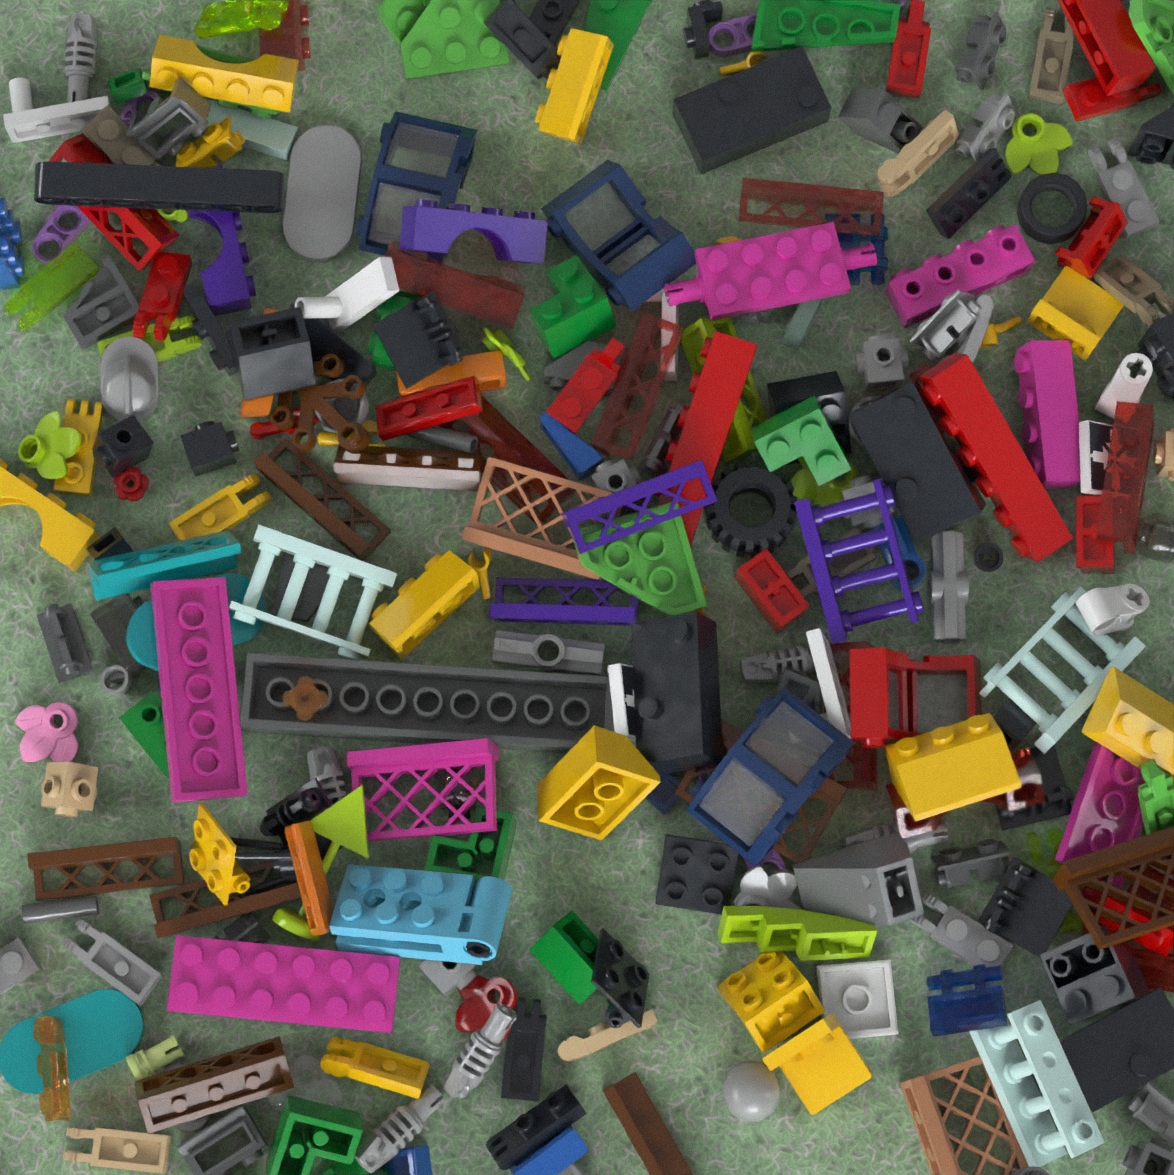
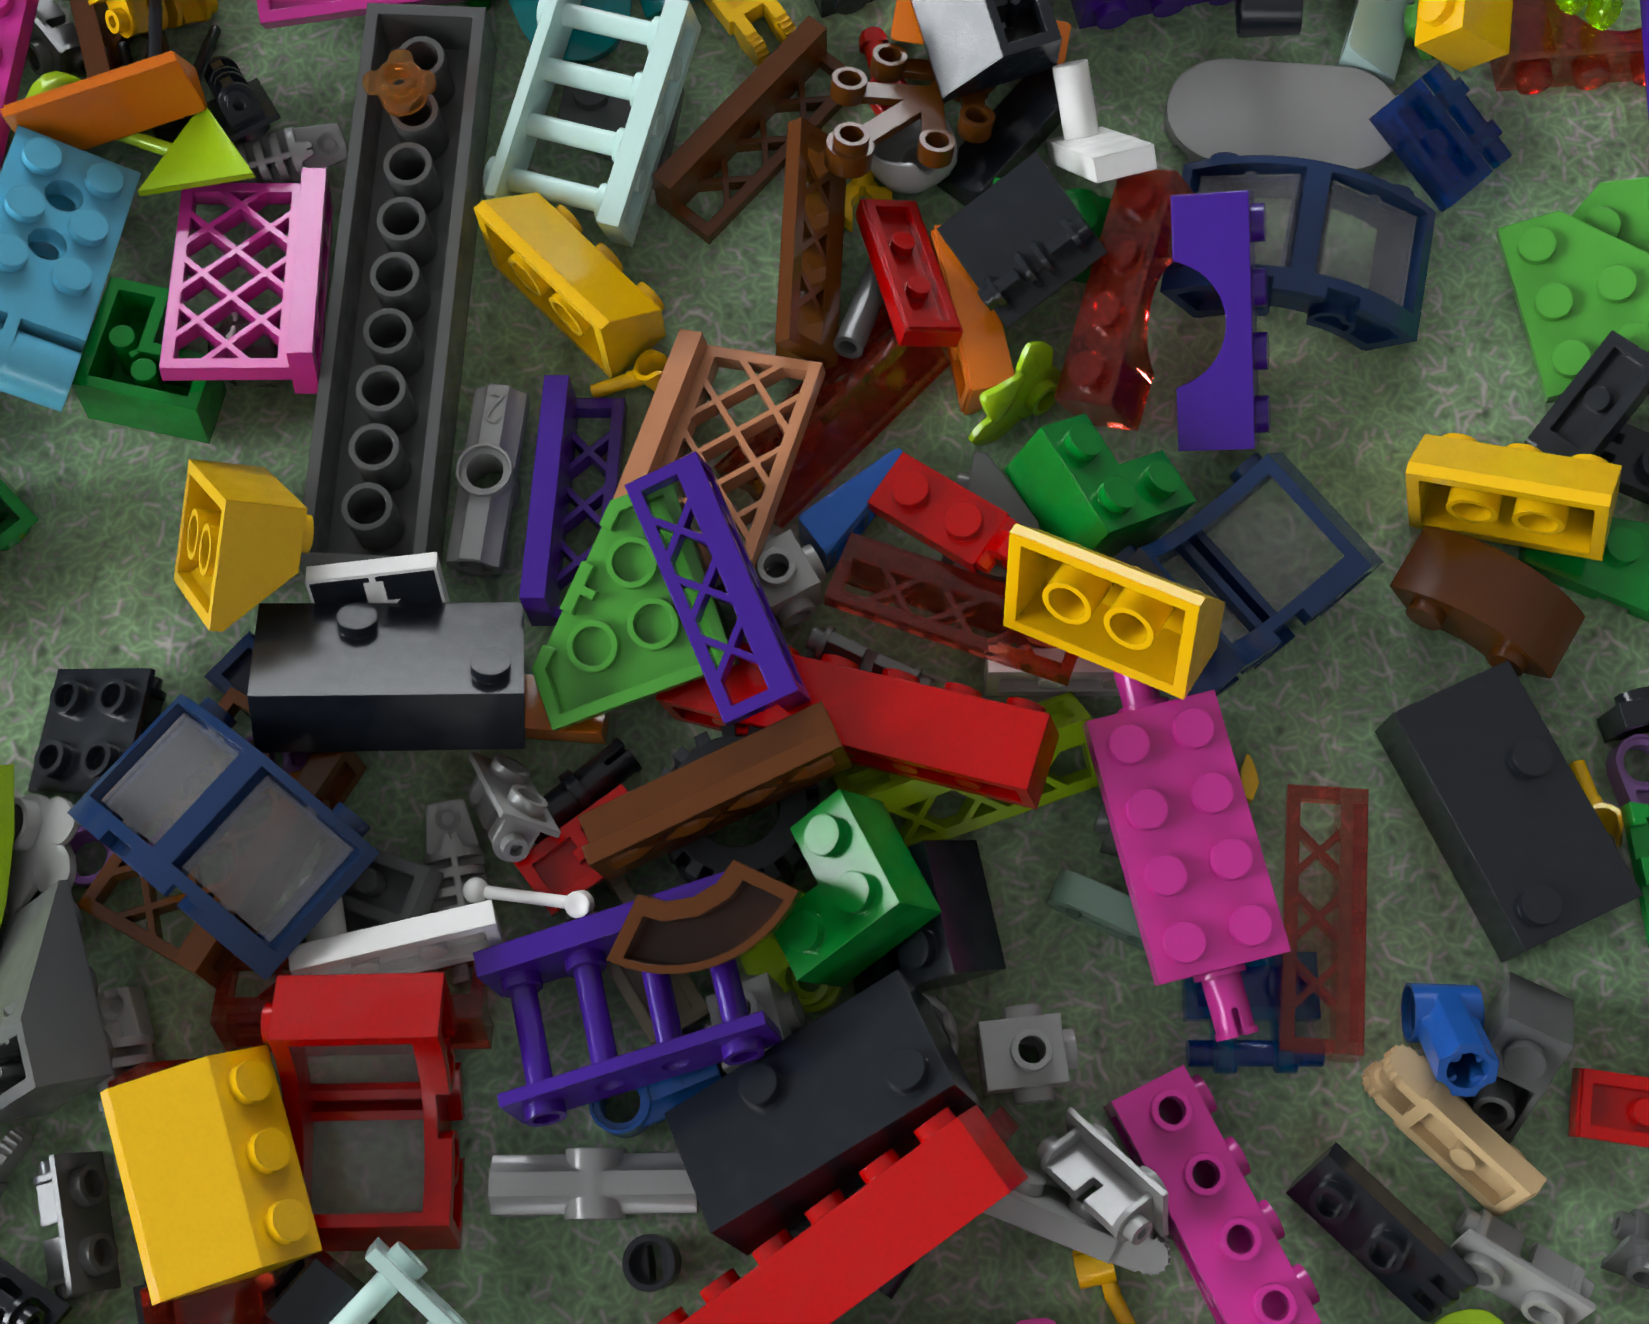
camera: 90 degrees right, 5 degrees down
(347, 110) = (1433, 144): none -> clear blue plate
(634, 107) = (1487, 601): none -> reddish brown brick
(655, 296) = (1109, 611): none -> yellow slope
(734, 601) = (589, 783): none -> black pin
(736, 638) = (509, 806): none -> light grey hinge
(749, 511) = (713, 792): none -> reddish brown fence
(806, 588) = (576, 904): none -> white hinge
(830, 507) = (704, 928): none -> reddish brown brick
(865, 149) = (1452, 1034): none -> blue piece

